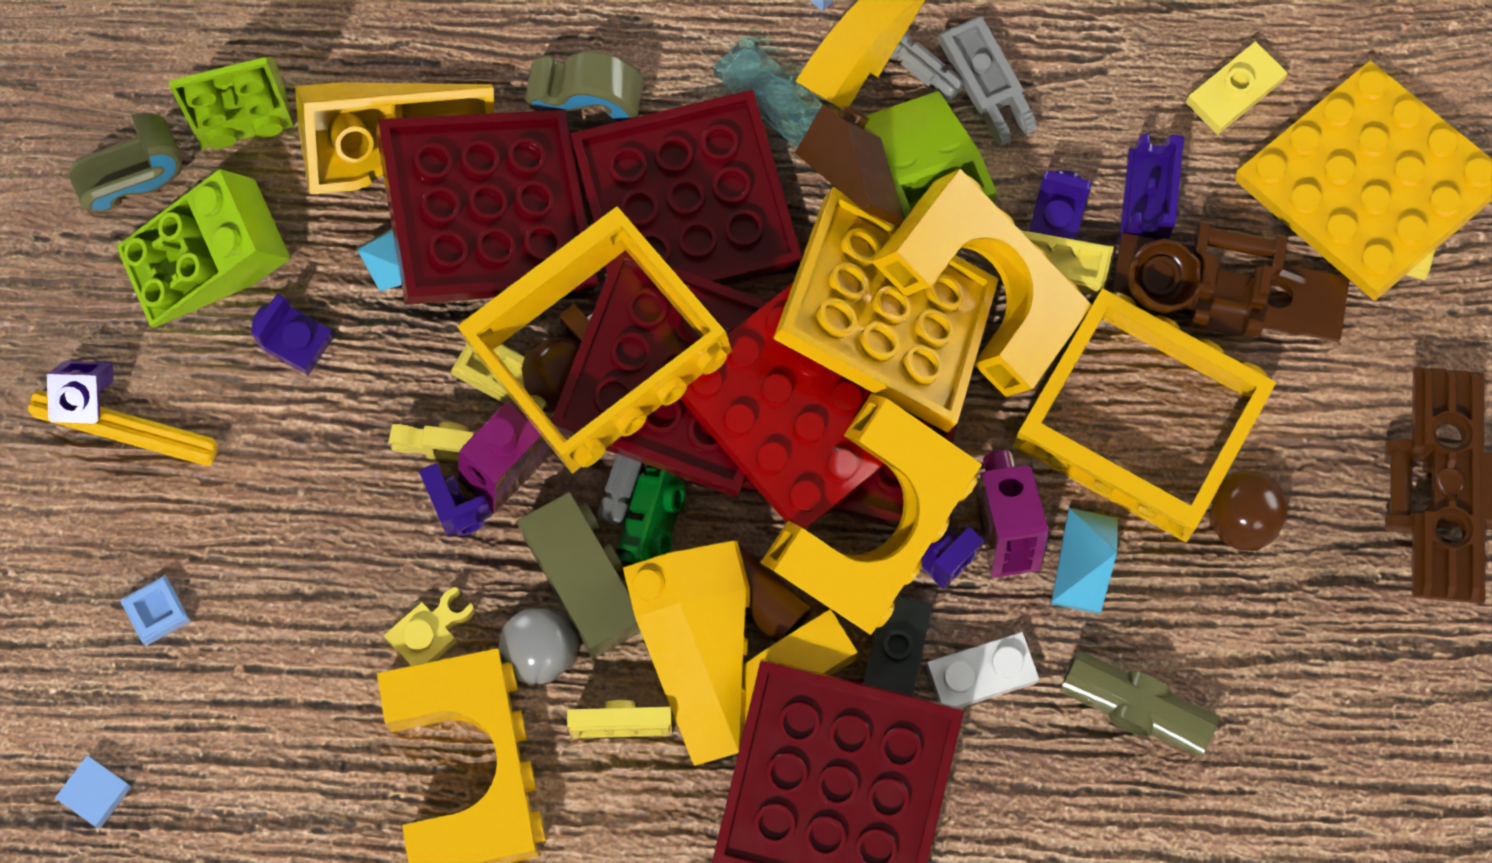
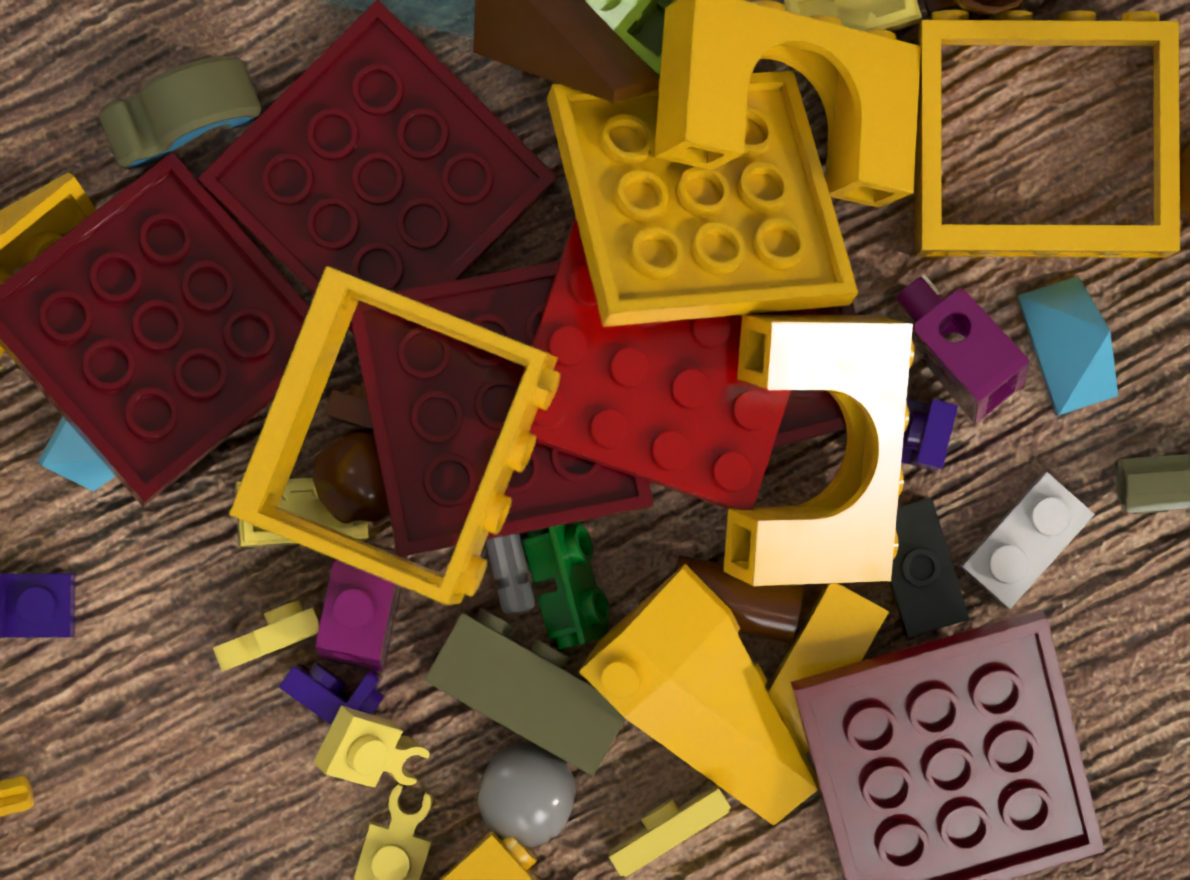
camera: 25 degrees left, 15 degrees up
(449, 544) = (364, 746): none -> light yellow plate

